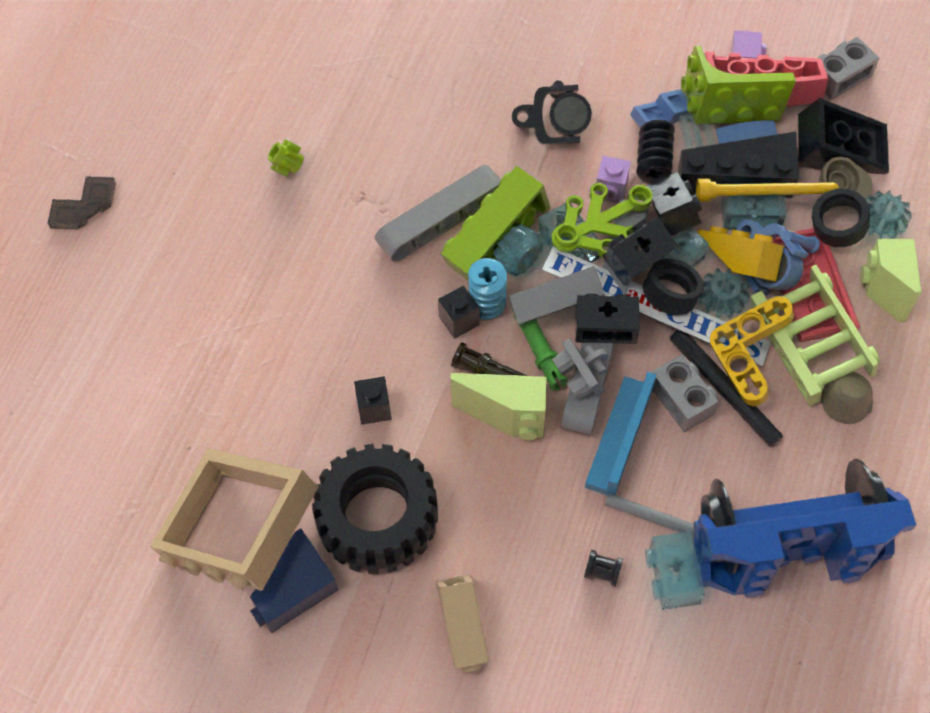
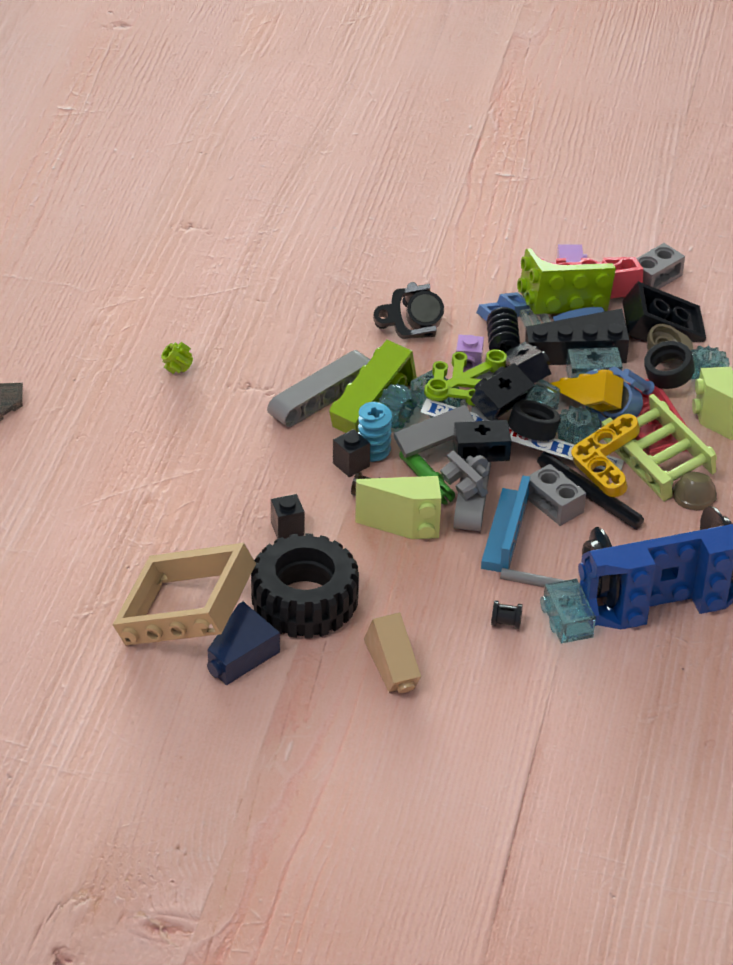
camera: 10 degrees left, 20 degrees down
(709, 189) = (555, 352): yellow piece -> none

